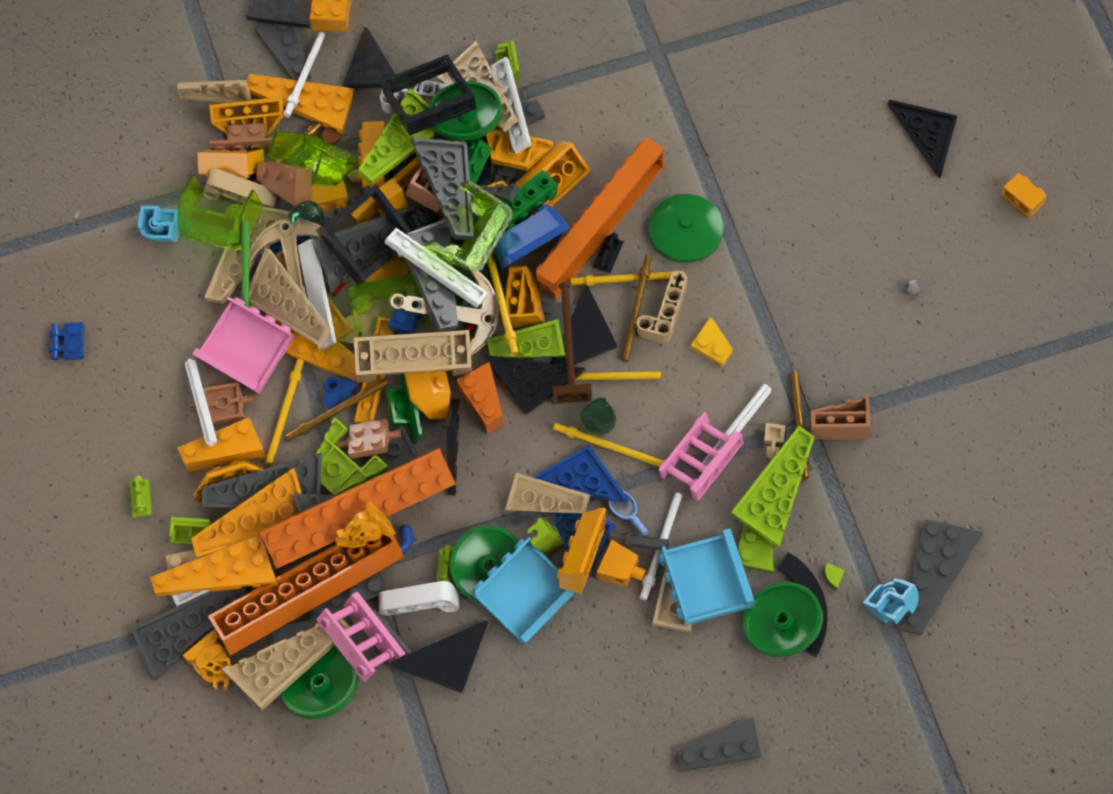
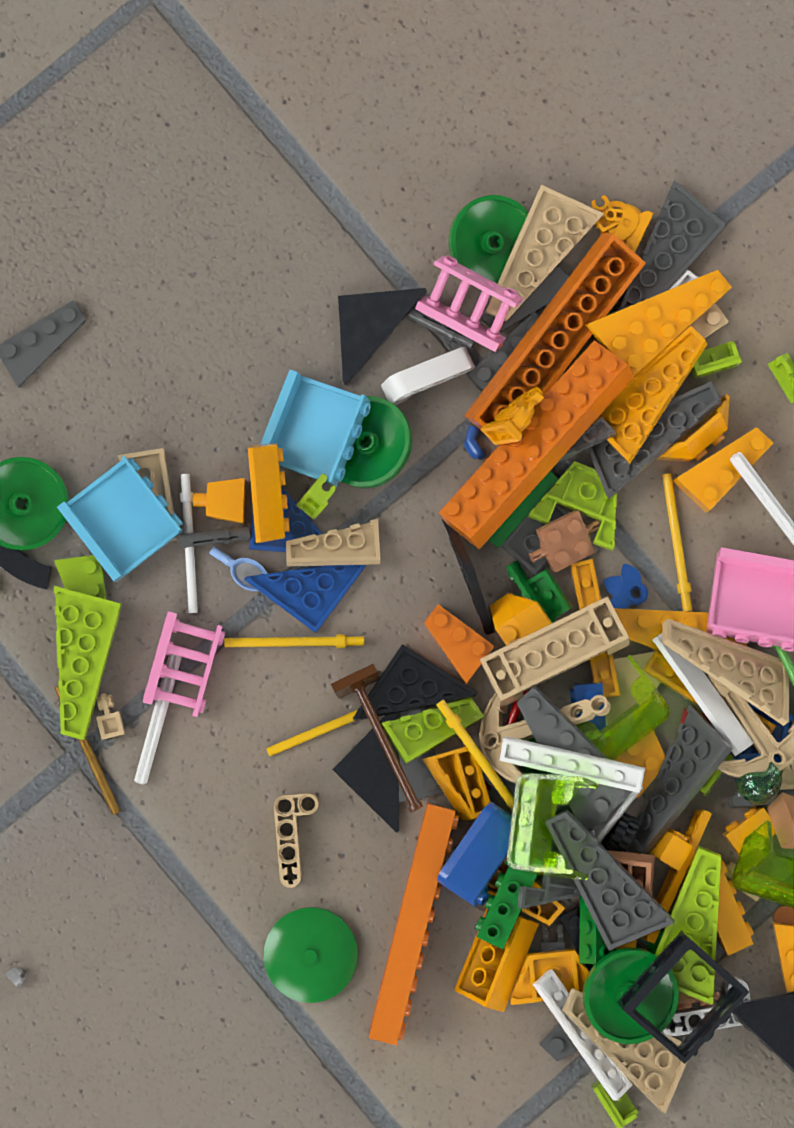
camera: 150 degrees right, 20 degrees up
(225, 402) = (748, 524): nougat plate -> none
(304, 428) = (644, 530): pearl gold bar -> none
(339, 250) = (713, 790): black window -> none
(443, 572) = (419, 434): lime hinge -> none
(590, 280) = (396, 841): yellow bar -> none
(598, 417) = (316, 664): clear green piece -> none
(608, 253) = (388, 884): black hinge -> none
(644, 274) = (334, 871): pearl gold bar -> none
(712, 343) = (223, 814): yellow wing -> none
(842, 421) = (37, 767): nougat wedge -> none

